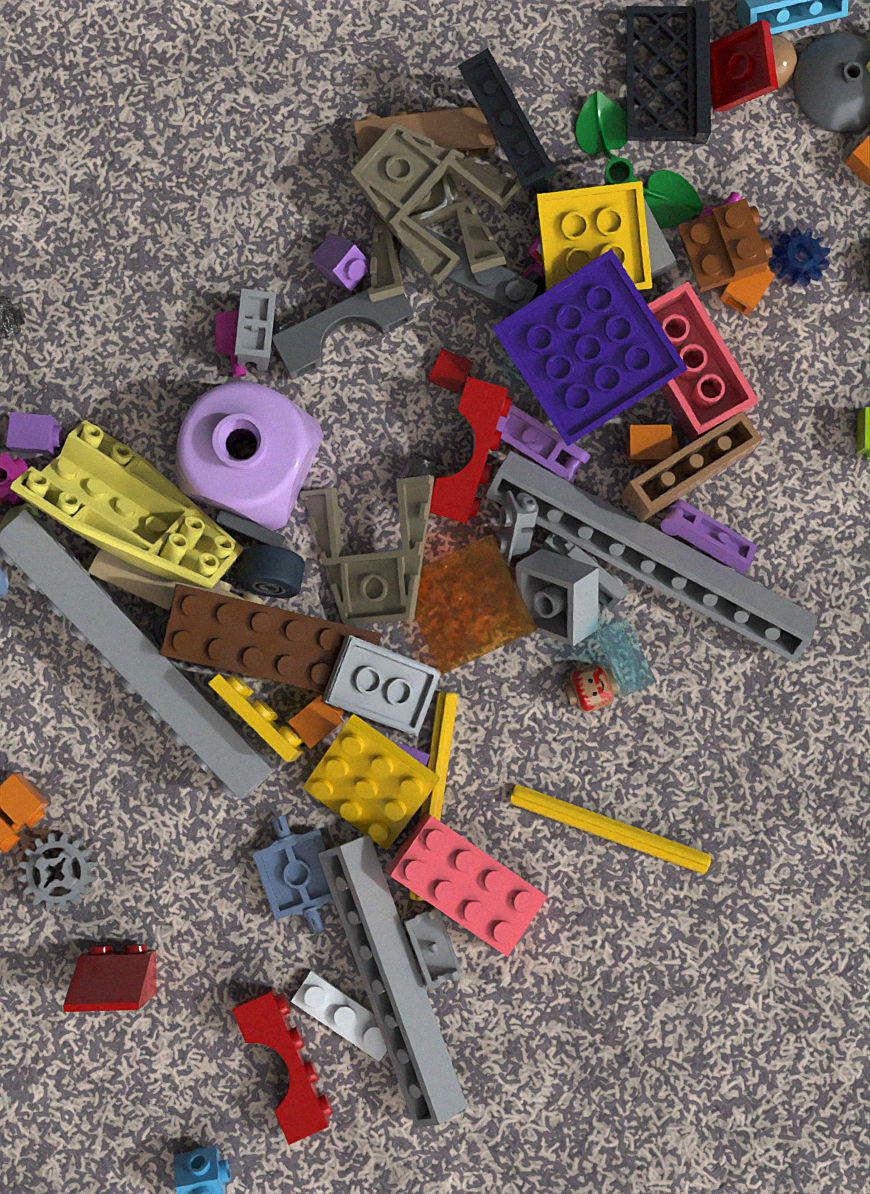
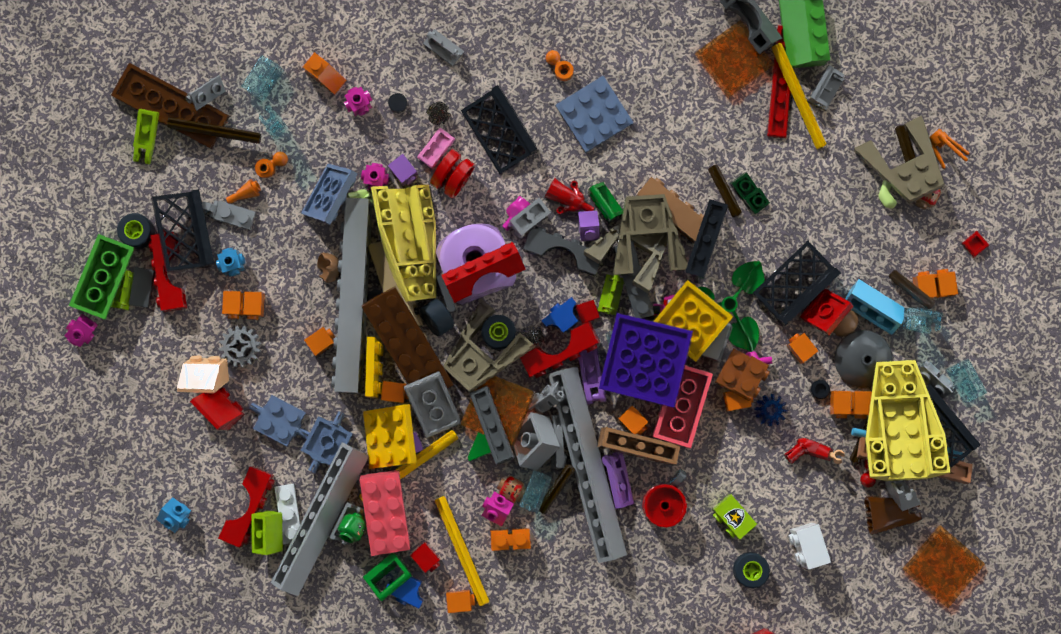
camera: 50 degrees right, 0 degrees up
(46, 364) = (436, 148): none -> bright pink plate
(47, 957) = (203, 374): none -> light nougat slope
(60, 645) = (329, 265): none -> medium nougat hair
(78, 105) = (553, 59): none -> orange plate
(100, 371) = (452, 173): none -> red wheel
(108, 230) = (515, 125): none -> black fence
(155, 756) = (320, 341): none -> orange brick
(201, 121) = (594, 114): none -> sand blue plate
(208, 911) = (279, 420): none -> sand blue plate
(254, 483) = (502, 260): none -> red arch
(285, 252) = (571, 199): none -> red piece
(330, 214) = (605, 202): none -> green tile
(343, 1070) = (267, 532): none -> lime brick
(377, 516) = (499, 338): none -> black wheel
(425, 408) = (561, 316): none -> blue brick
(445, 947) = (352, 527): none -> green head
(455, 49) = (724, 190): none -> dark brown axle
(457, 319) = (611, 294): none -> lime hinge
(484, 632) = (492, 425): none -> dark grey tile
(492, 24) = (749, 193): none -> dark green slope
(499, 670) = (479, 448): none -> green slope
(537, 960) = (383, 569): none -> green tile
(576, 885) = (426, 558): none -> red brick
(595, 953) = (409, 593): none -> blue brick
(599, 729) = (496, 508): none -> dark pink brick
(645, 623) = (556, 488): none -> dark brown axle
(648, 762) = (518, 539): none -> orange piece
(675, 893) = (460, 601): none -> orange brick
(757, 143) = (801, 347): none -> orange brick
(778, 457) = (678, 478): none -> dark grey tile
(808, 489) = (675, 501): none -> red wheel
(830, 173) = (819, 389): none -> black tile

